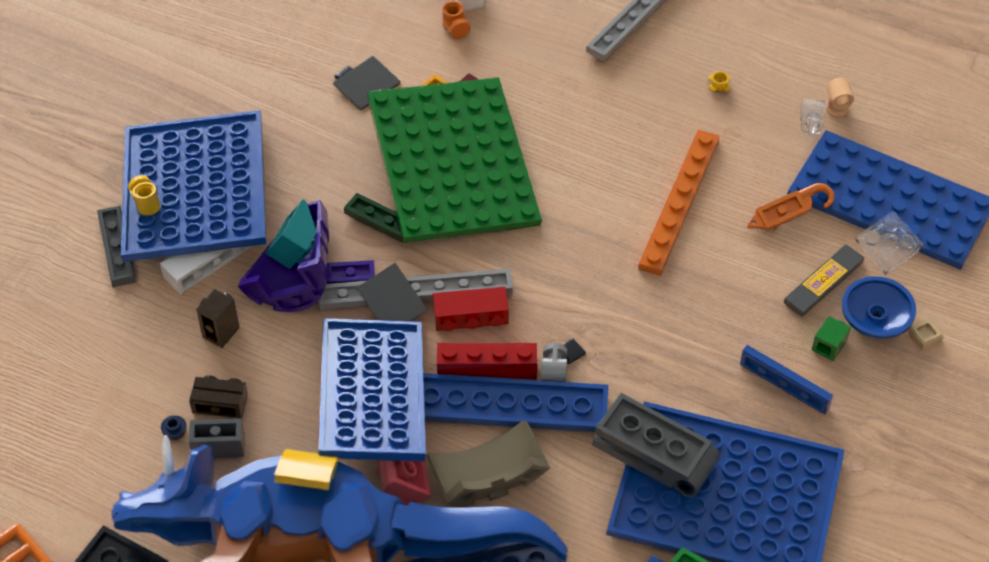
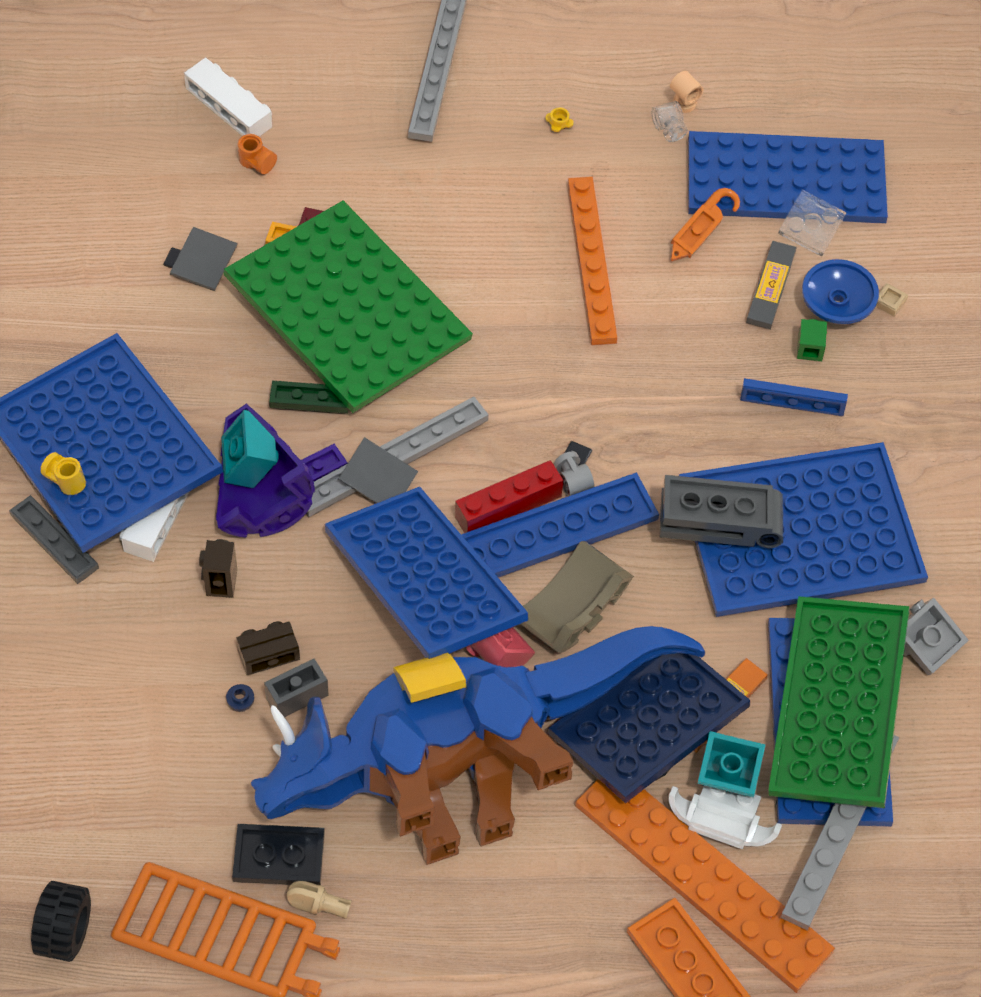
camera: 30 degrees left, 5 degrees up
(470, 308) = (460, 453): red brick -> none

